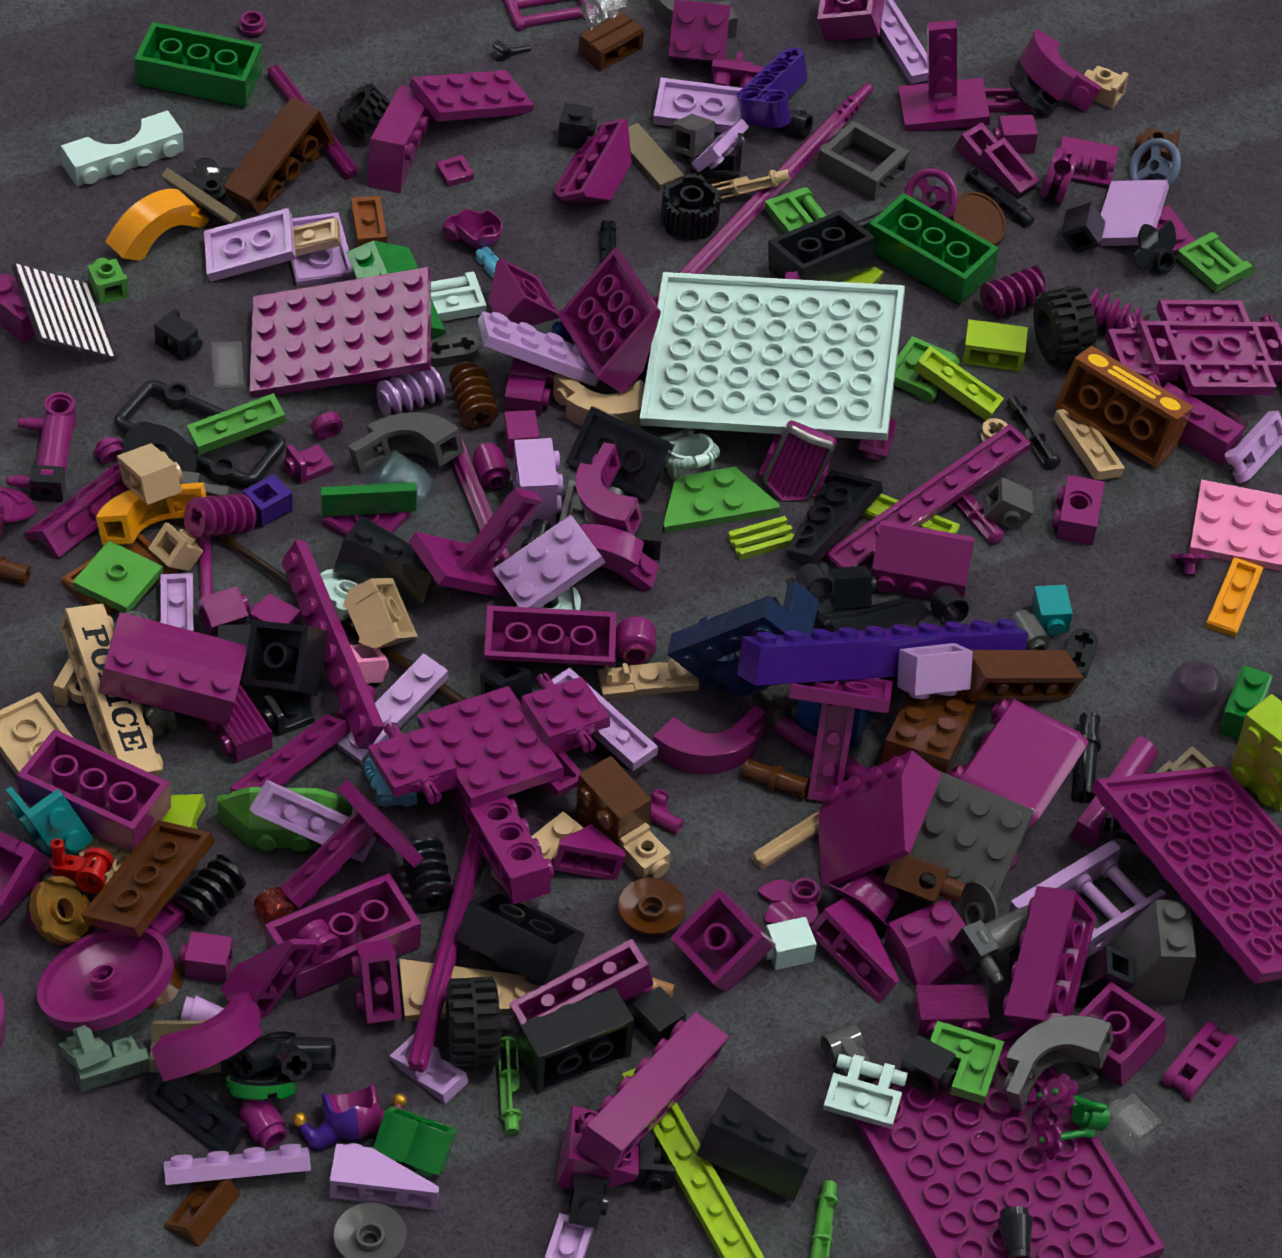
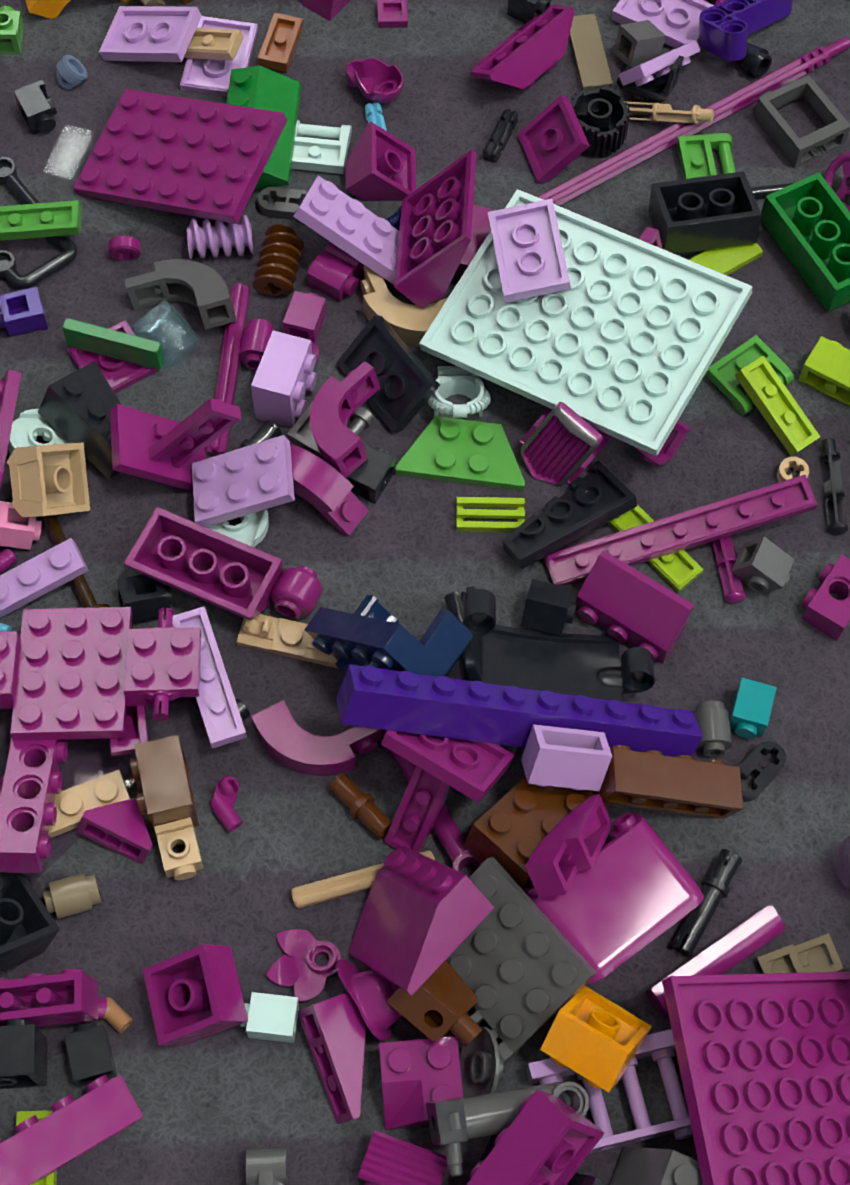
camera: 25 degrees right, 15 degrees up
(191, 296) = (70, 70): none -> sand blue tile
(307, 463) = (86, 282): magenta bracket -> none
(579, 911) = (72, 895): none -> dark tan brick
(652, 895) = (149, 898): reddish brown dish -> none
(660, 232) = (553, 139): none -> magenta tile
(702, 314) = (529, 250): none -> lavender plate
(970, 732) = (569, 848): none -> magenta slope
(1055, 862) = (595, 1038): none -> light orange slope

